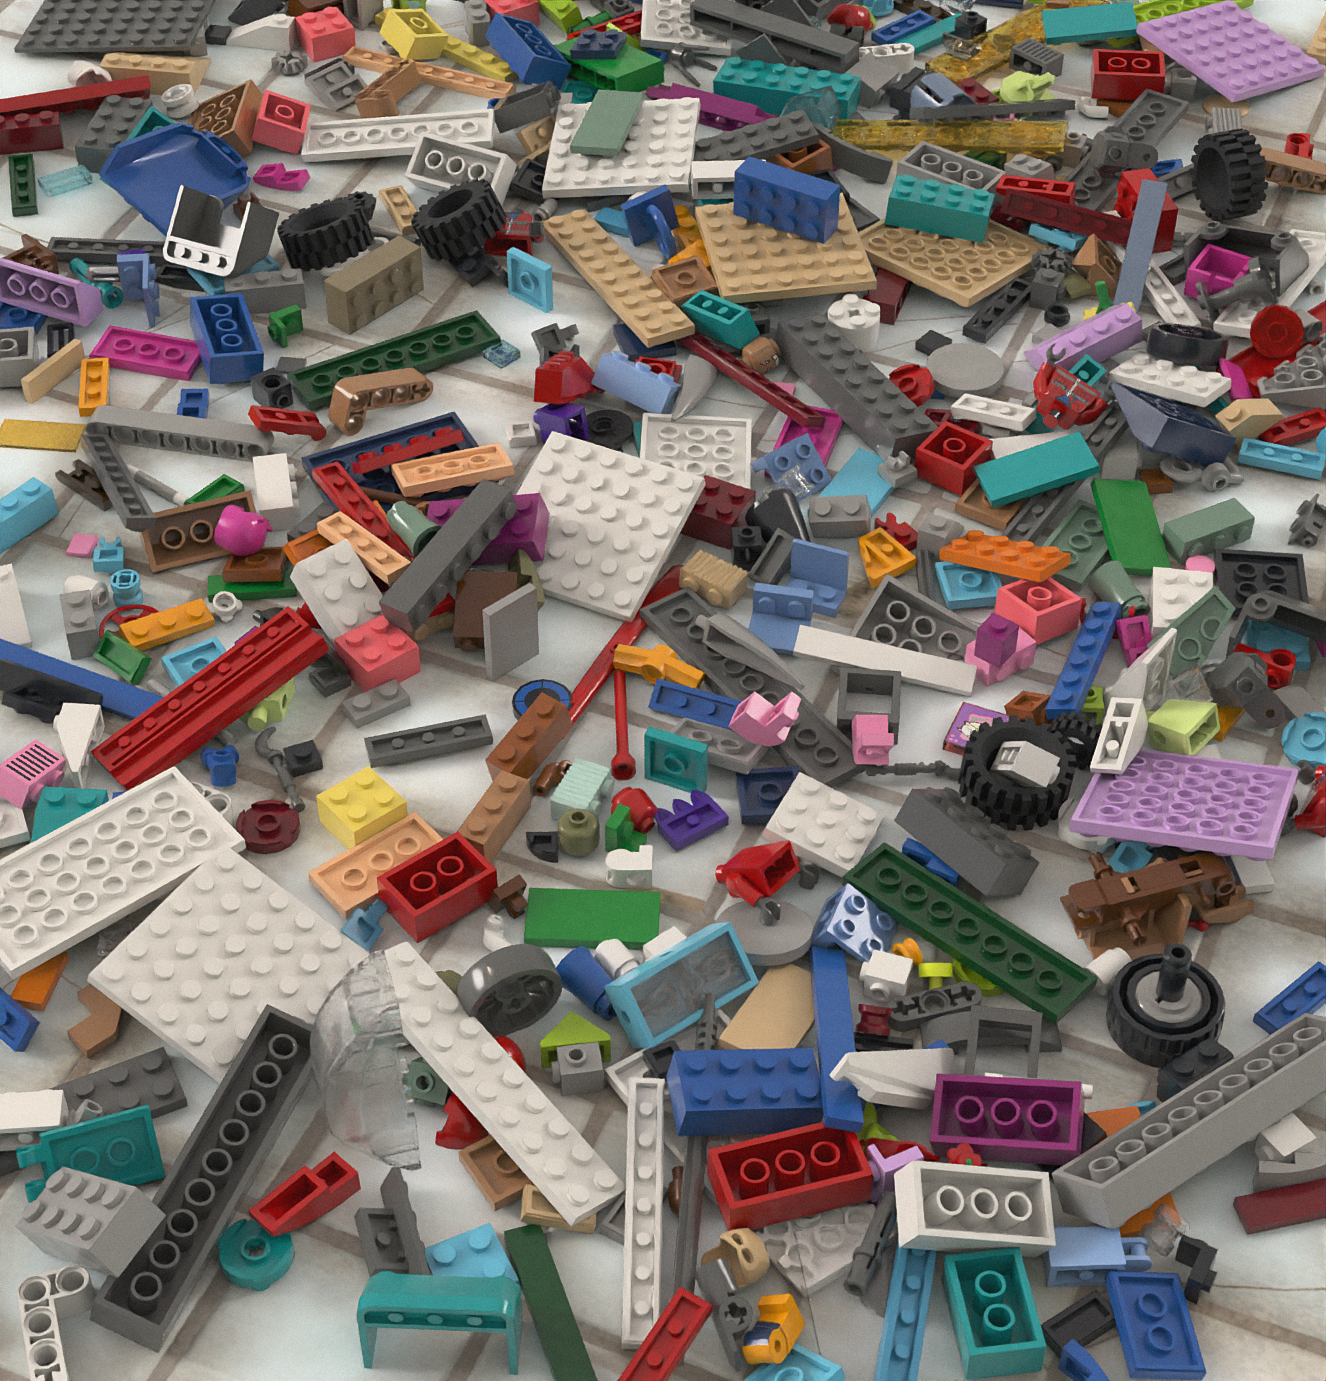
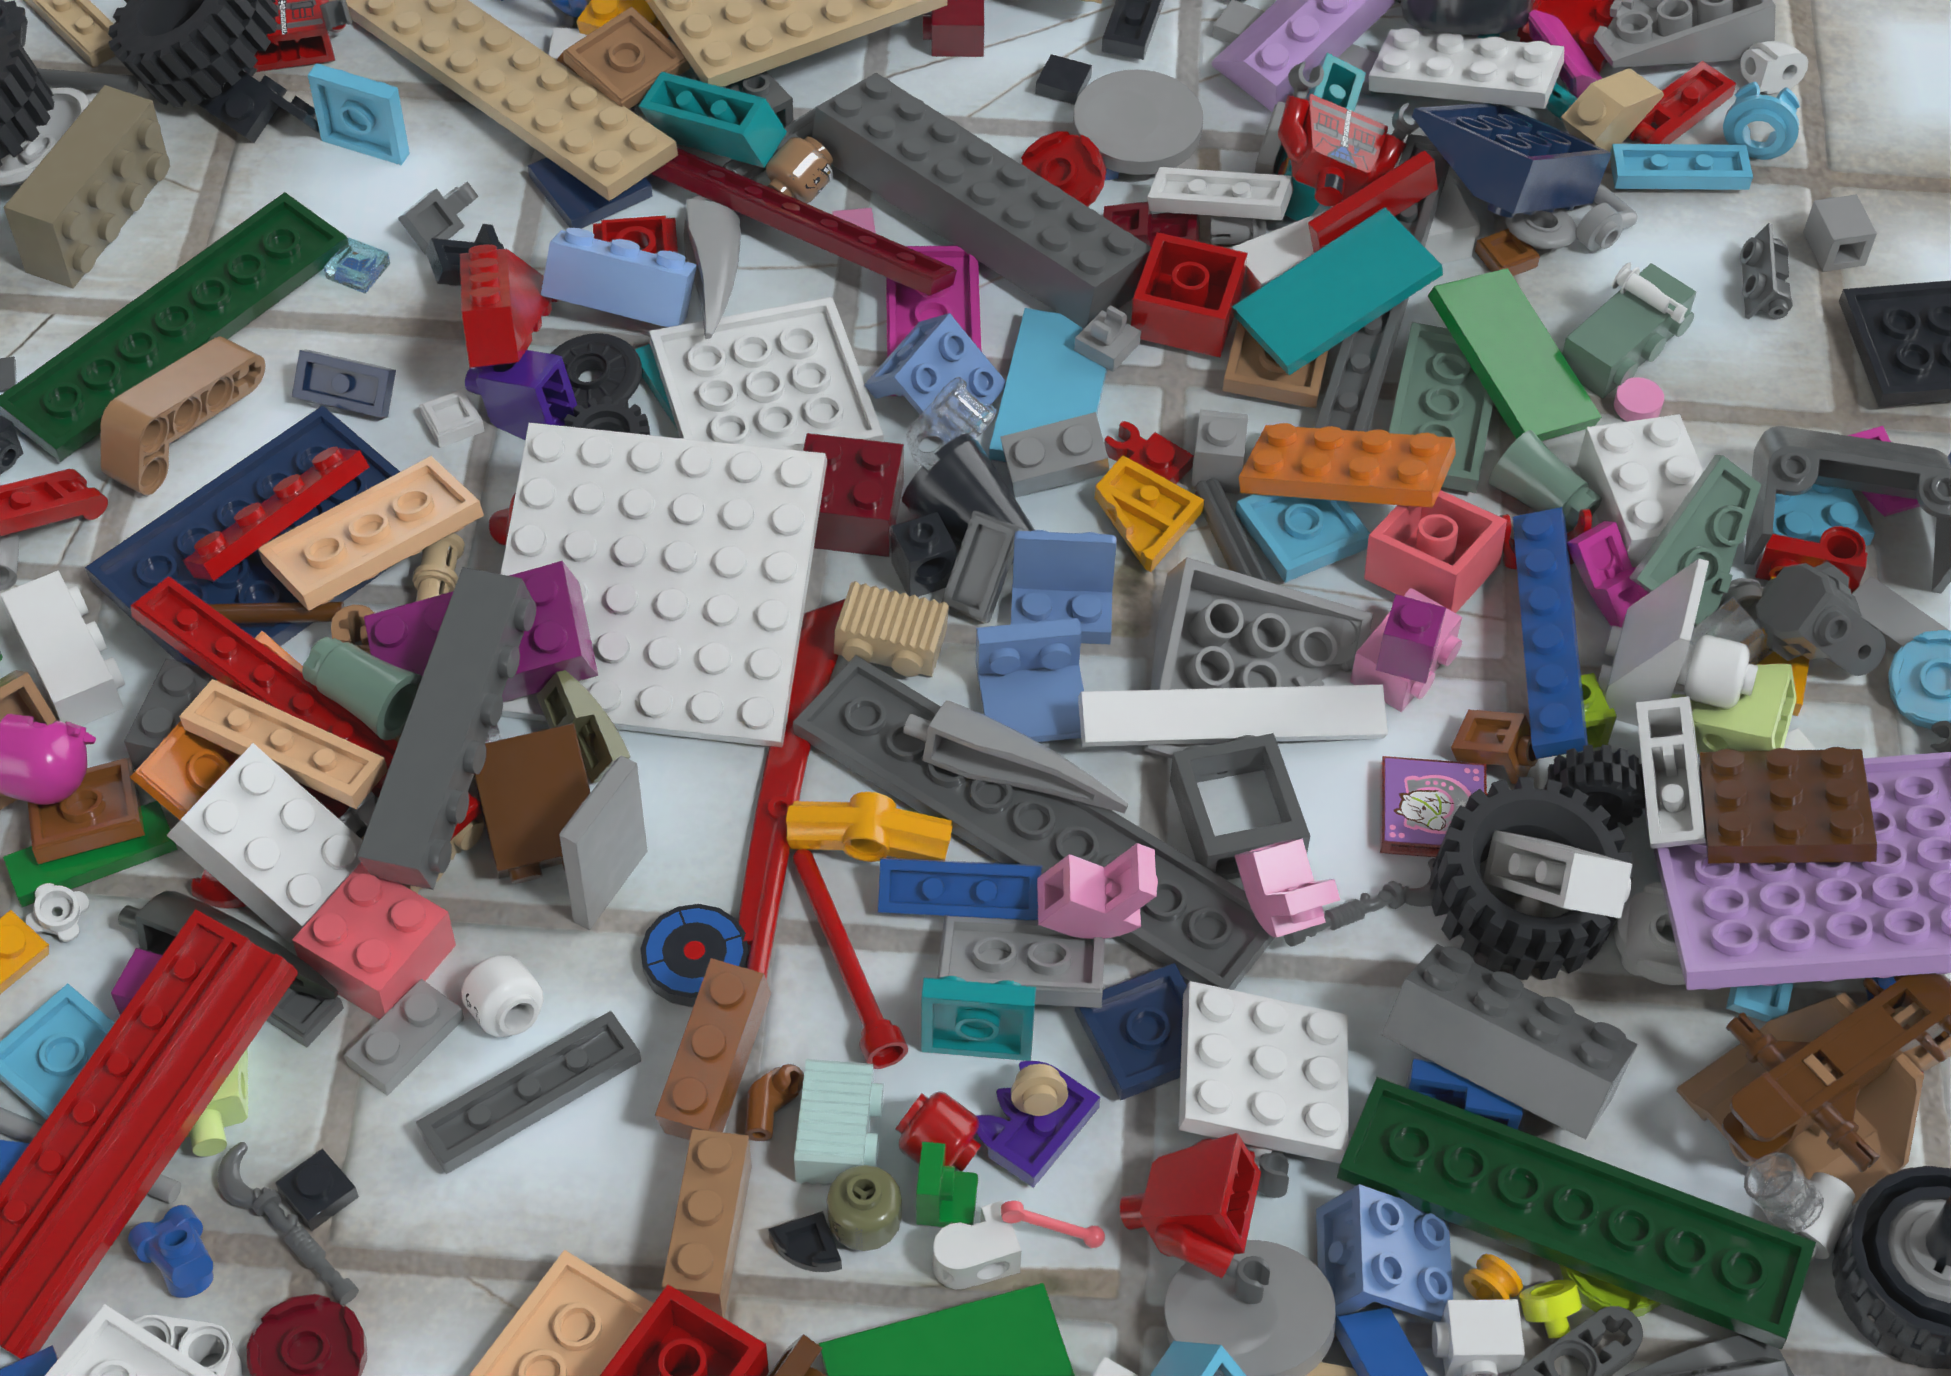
camera: 20 degrees left, 10 degrees up
(360, 807) = (467, 1275): light yellow brick -> none
(432, 694) = (502, 996): none -> white head
(470, 404) = (343, 383): none -> dark blue plate
(654, 849) = (1014, 1212): none -> coral hinge
(693, 800) = (1039, 1090): none -> tan plate
(856, 321) = (932, 68): white brick -> none
(1087, 947) = (1783, 1192): none -> clear wheel
(1089, 424) = (1392, 191): none -> red tile
(1168, 695) = (1717, 672): none -> white head
(1178, 767) = (1787, 806): none -> reddish brown plate
(1214, 500) = (1645, 290): none -> white piece
(1249, 572) = (1738, 395): black plate -> none

